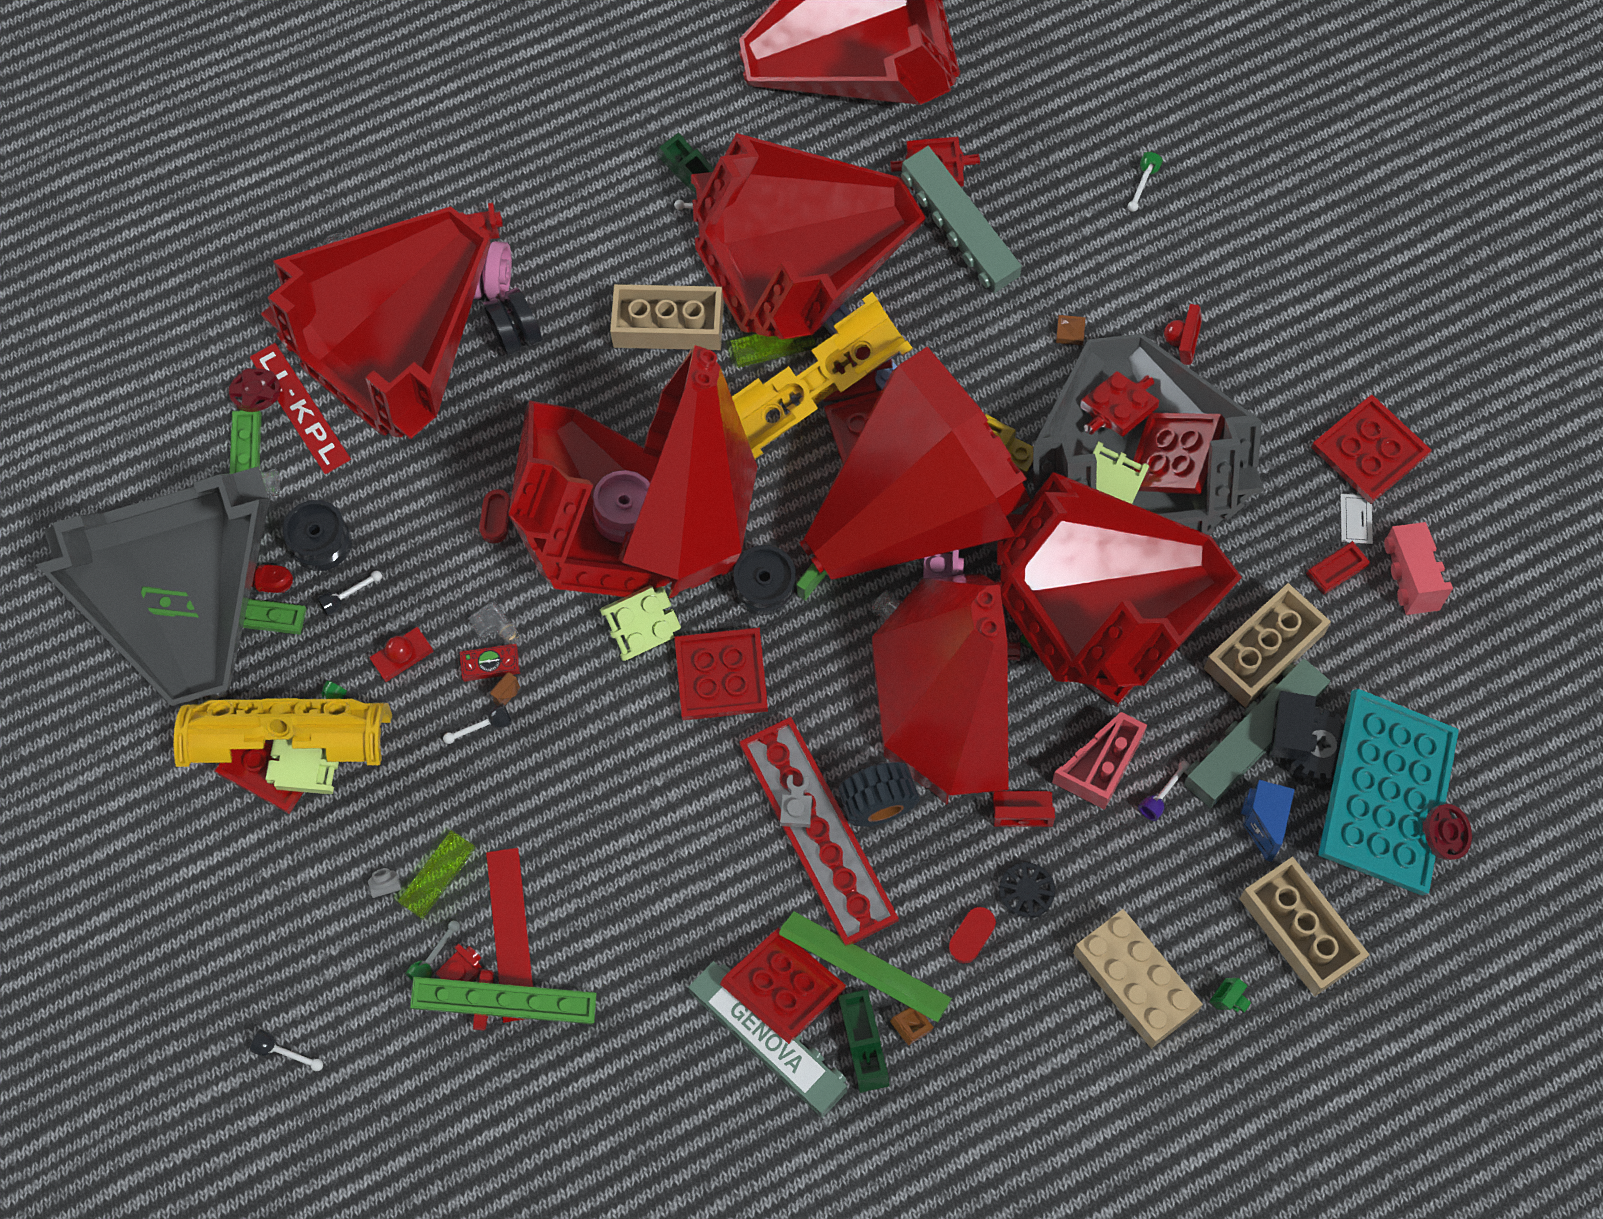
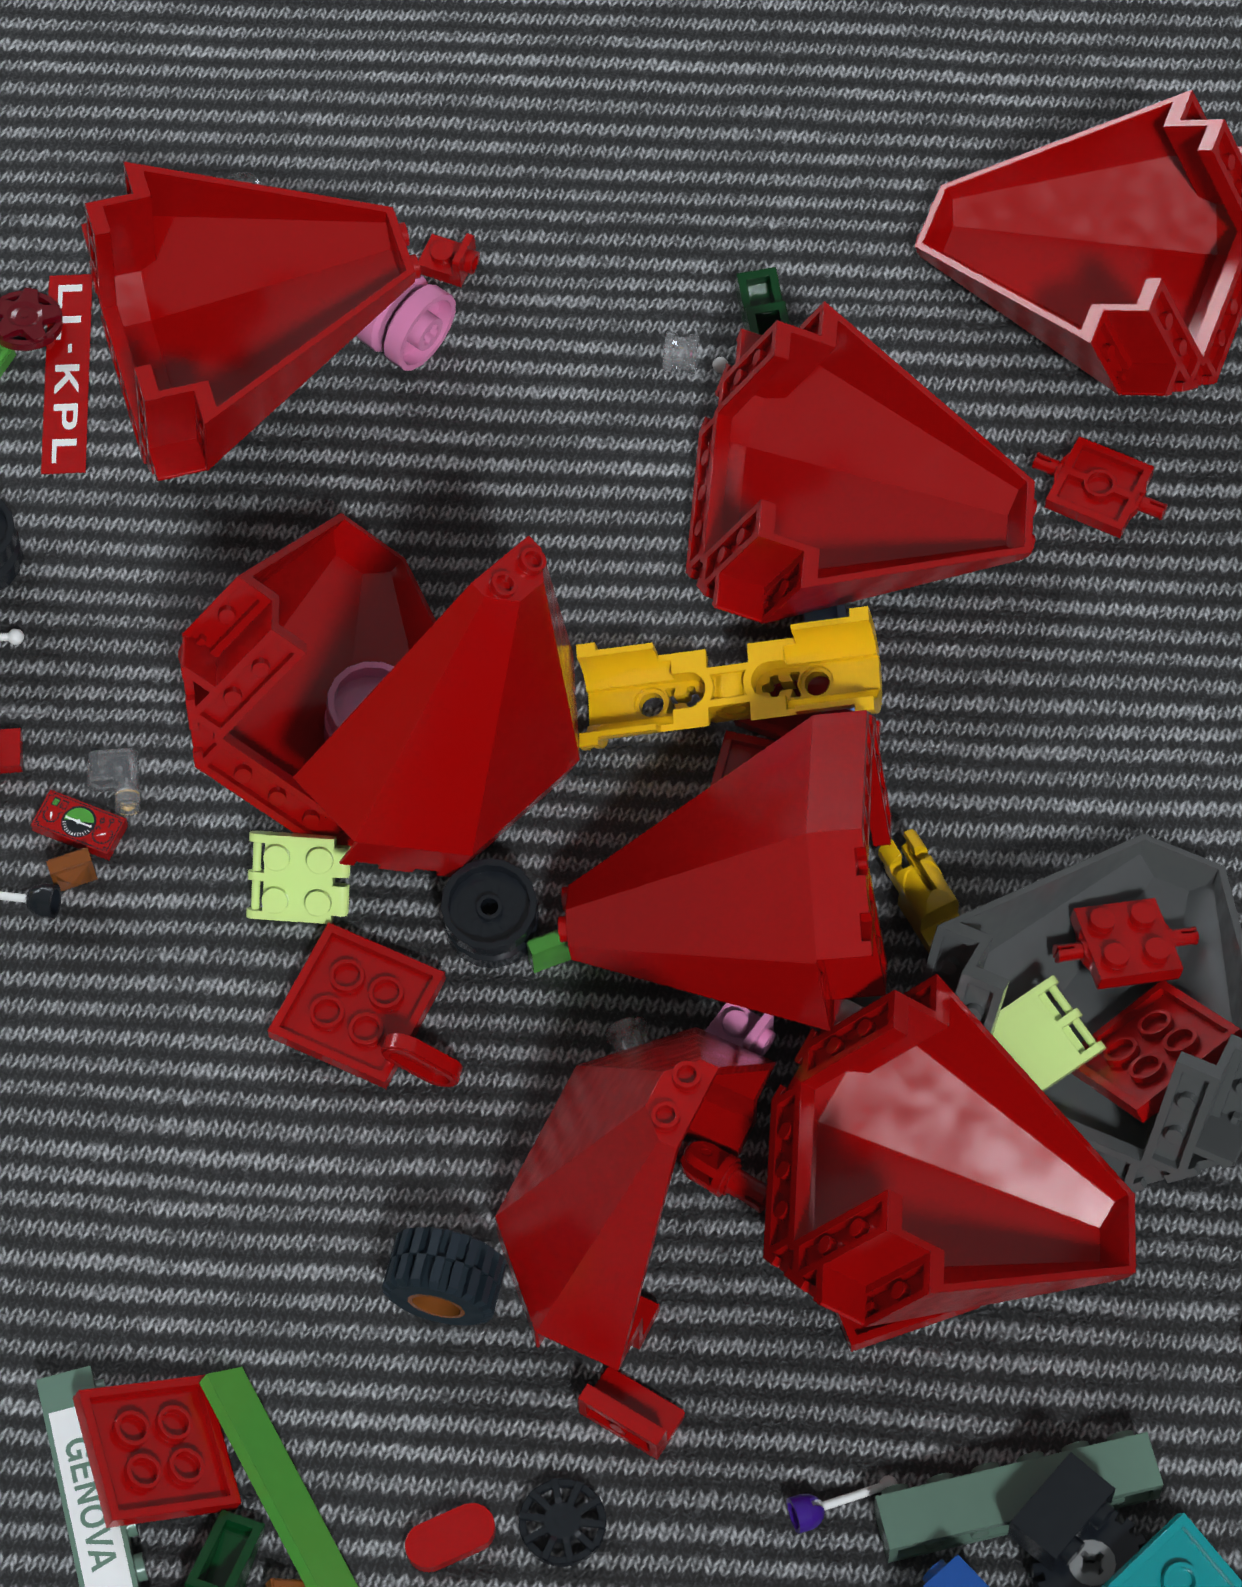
camera: 30 degrees right, 5 degrees down
(514, 321) = (390, 402): black wheel -> none
(654, 209) = (681, 353): none -> clear wheel
(667, 317) = (599, 502): tan brick -> none
(762, 348) = (688, 608): clear neon green tile -> none
(781, 683) = (421, 1060): none -> red tile
(796, 807) = (332, 1231): light grey plate -> none
(829, 846) = (339, 1283): piece -> none
(960, 219) = (1078, 580): sand green brick -> none
(1070, 330) = (1135, 809): dark orange tile -> none
(1101, 763) = (776, 1409): coral wedge -> none
(1266, 645) = (1109, 1384): tan brick -> none

